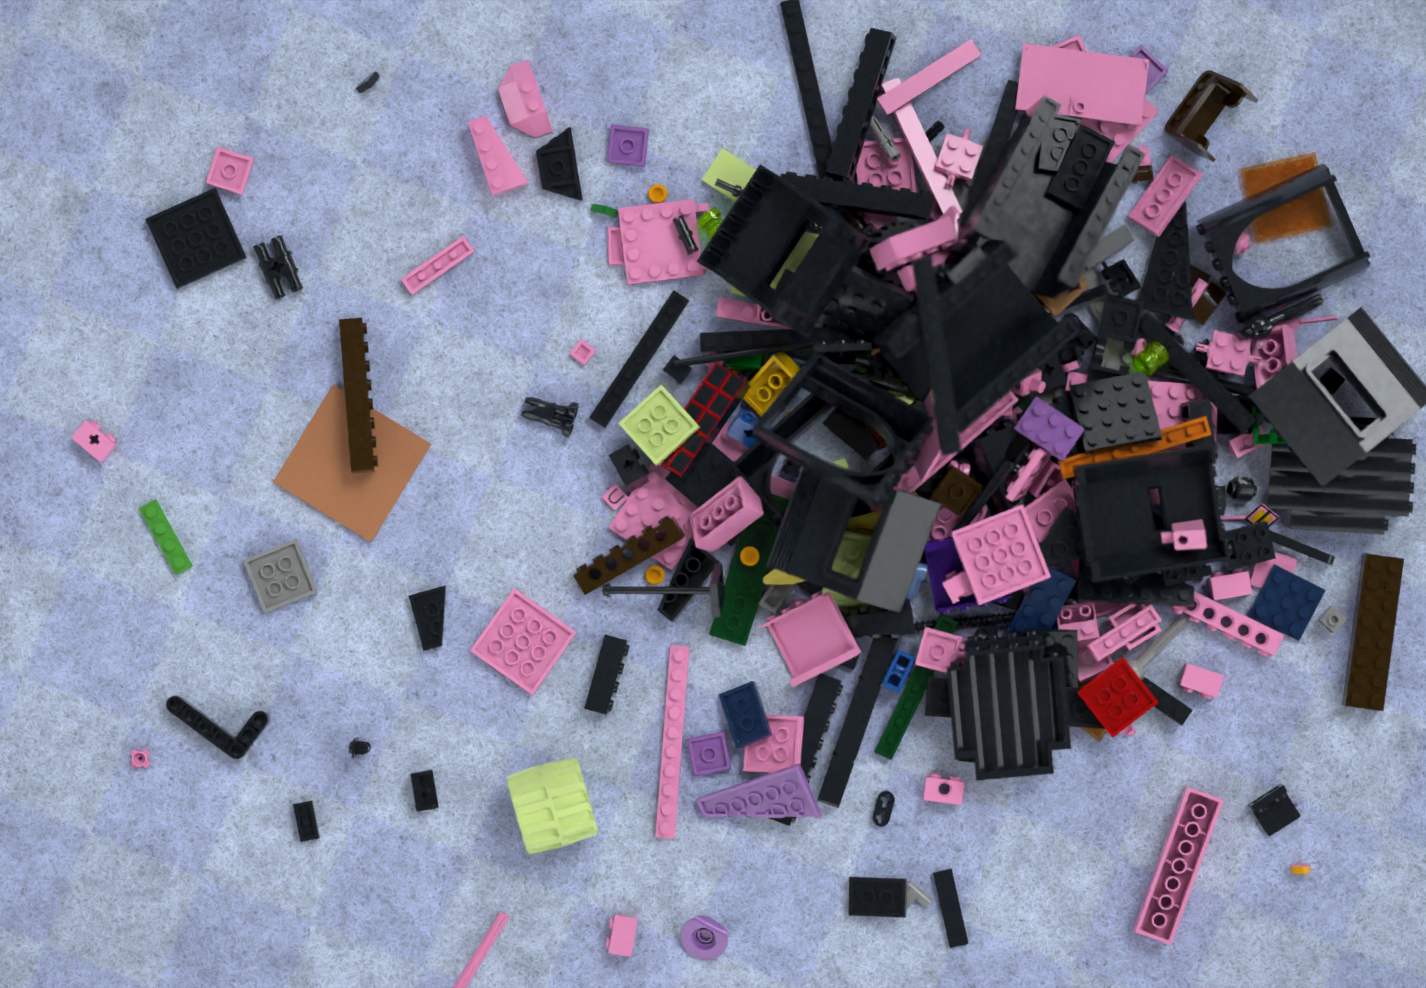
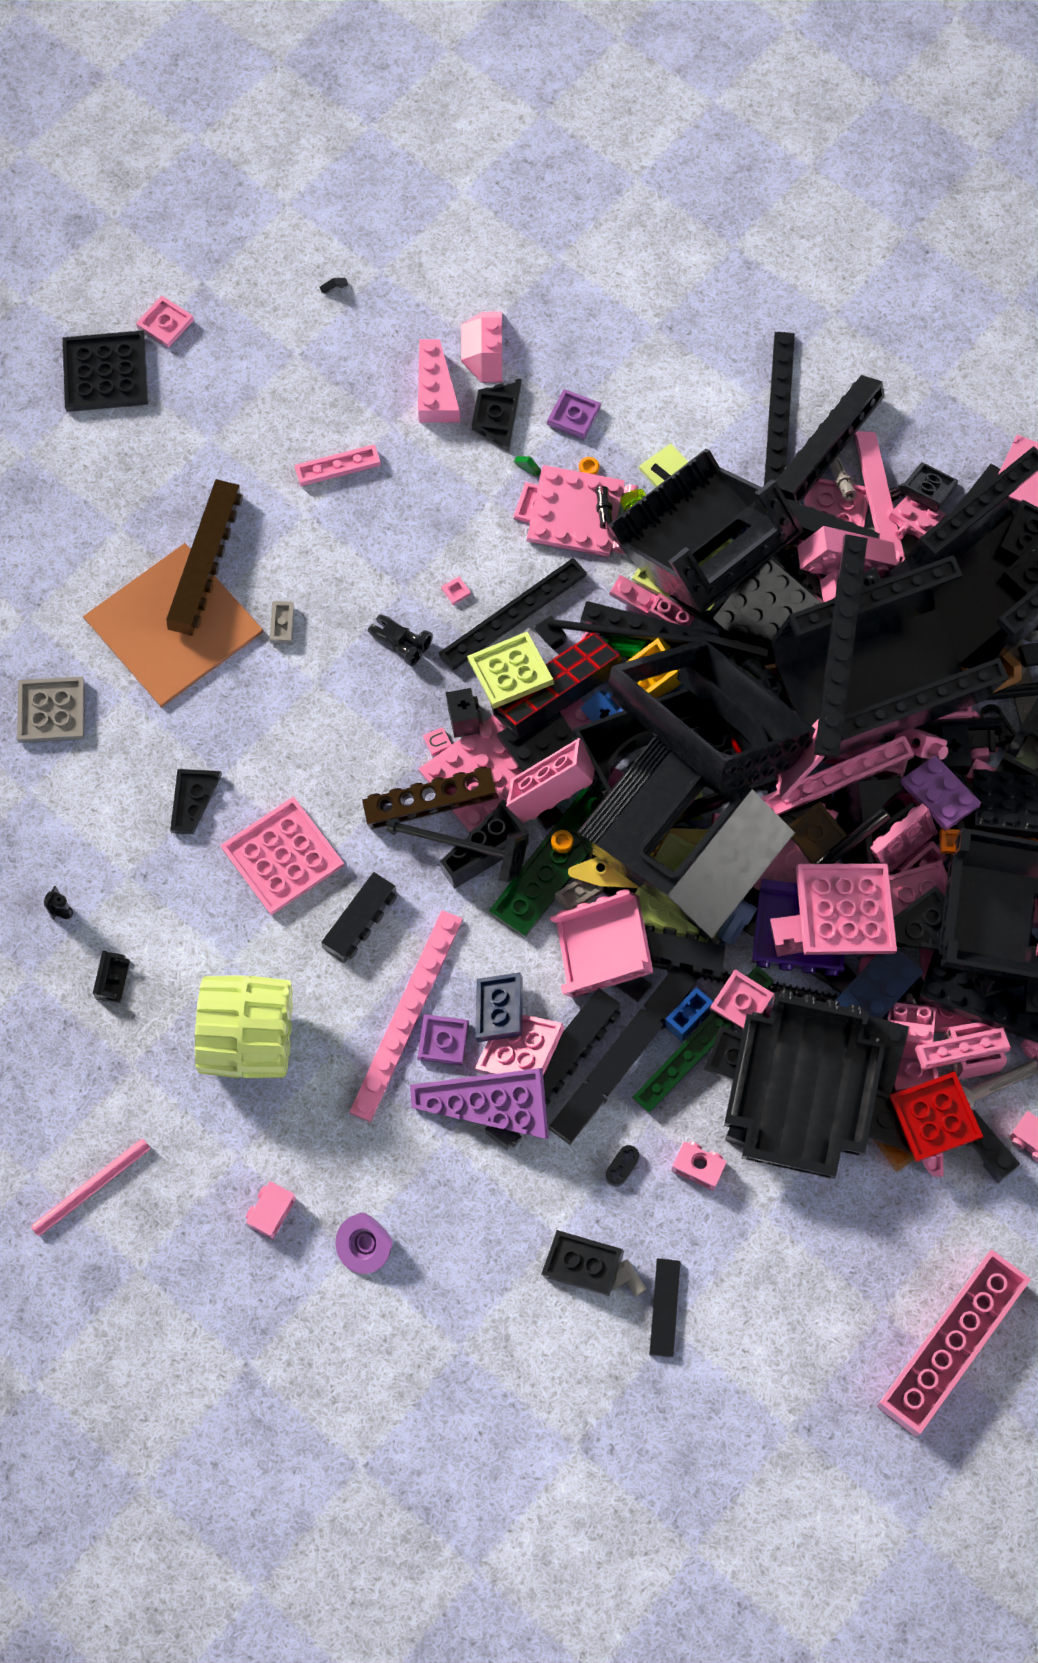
camera: 20 degrees right, 20 degrees down
(268, 264) = (184, 420): black pin -> none
(445, 432) = (282, 622): none -> light grey plate
(654, 575) = (452, 829): light orange tile -> none
(928, 77) = (907, 438): bright pink tile -> none
(960, 122) = (929, 486): none -> black tile

